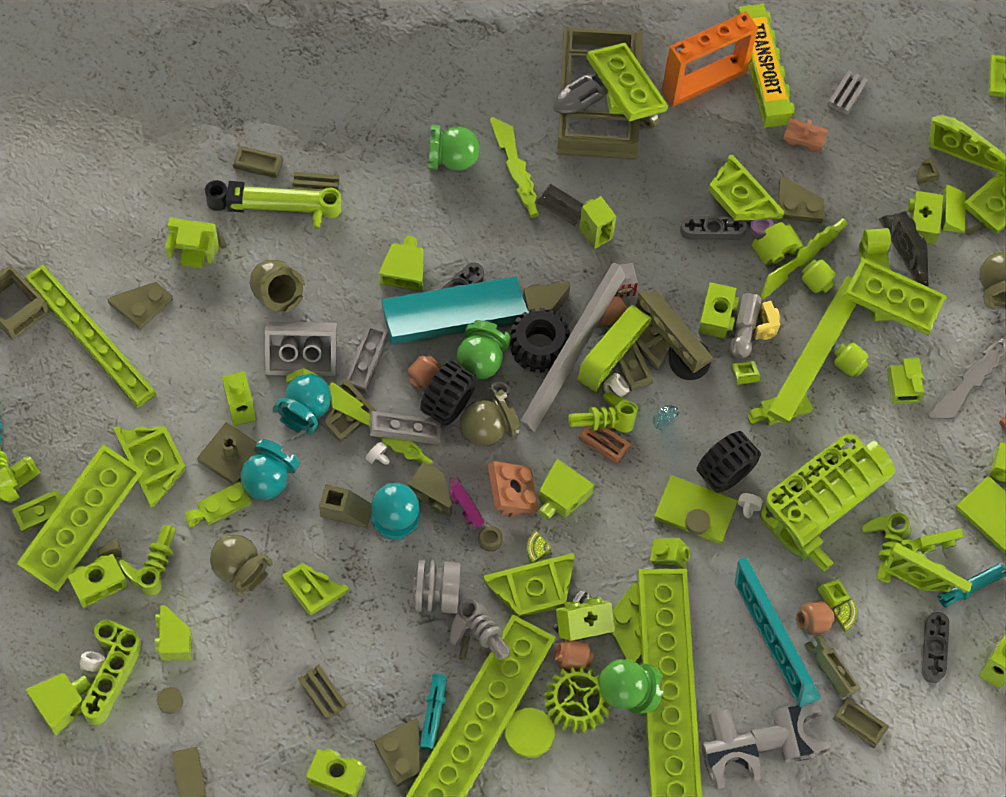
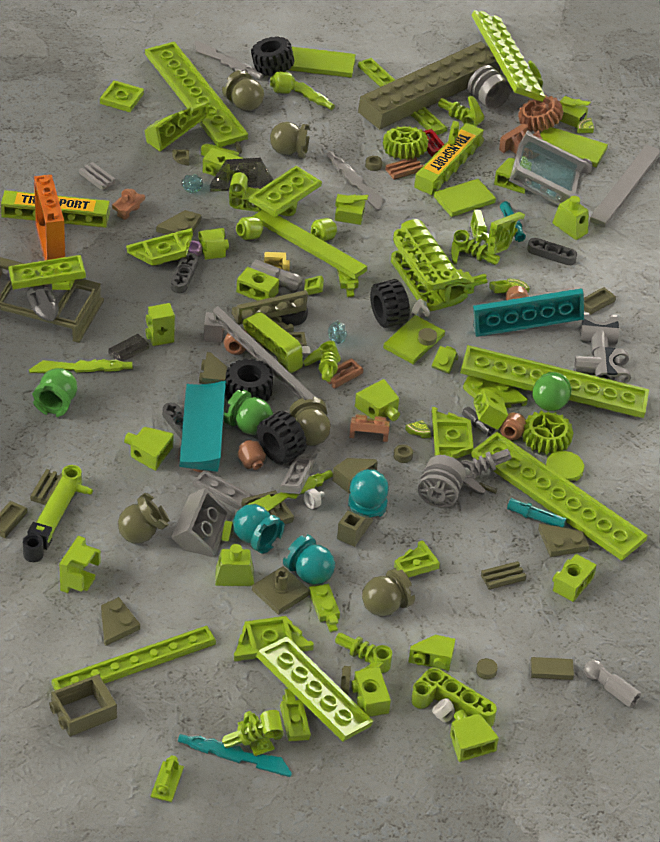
camera: 75 degrees left, 20 degrees down
(460, 495) = (377, 451): magenta wing -> none
(804, 255) = (211, 211): lime sword -> none
(877, 188) = (192, 183): none -> clear light blue plate

